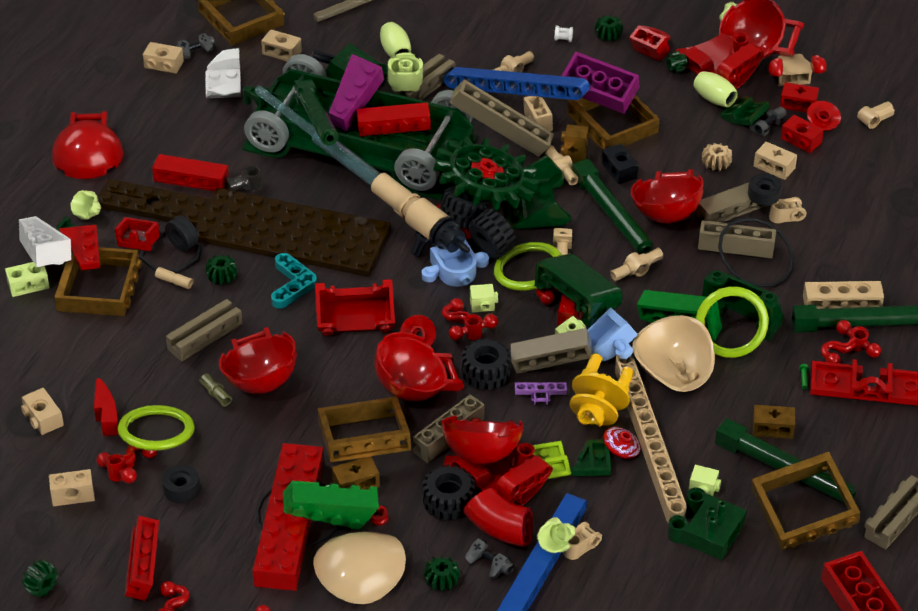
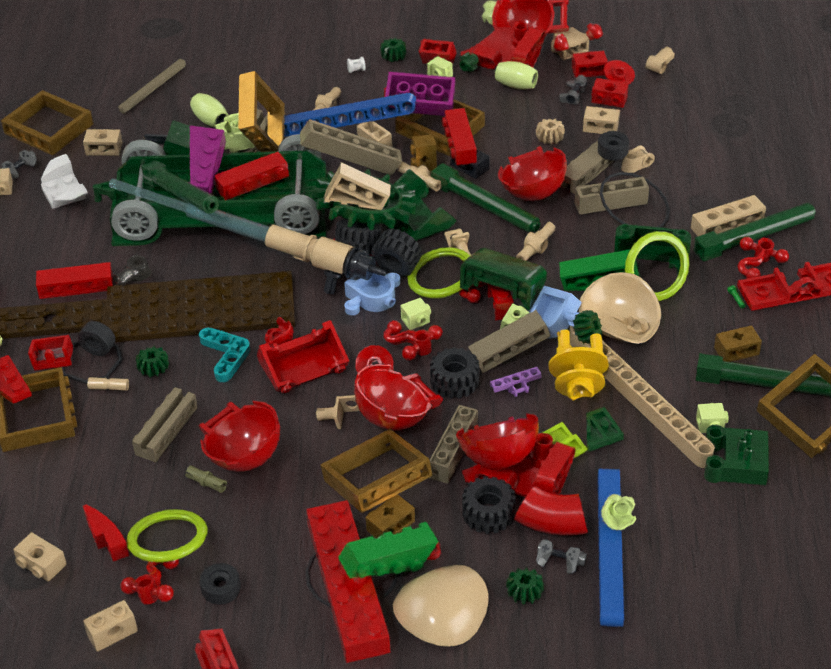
camera: 20 degrees left, 0 degrees up
(345, 279) = (281, 334): none -> red hair
(359, 367) = (337, 411): none -> tan bracket
(429, 28) = (253, 89): none -> pearl gold window
(476, 161) = (357, 188): none -> tan wedge
(582, 541) = (640, 509): tan piece -> none
(617, 136) = (459, 136): none -> red brick
(621, 442) = (617, 405): red dish -> none
(627, 355) = (586, 324): none -> dark green gear
(644, 61) = (440, 67): none -> yellowish green brick
(745, 111) = (550, 88): dark green slope -> none

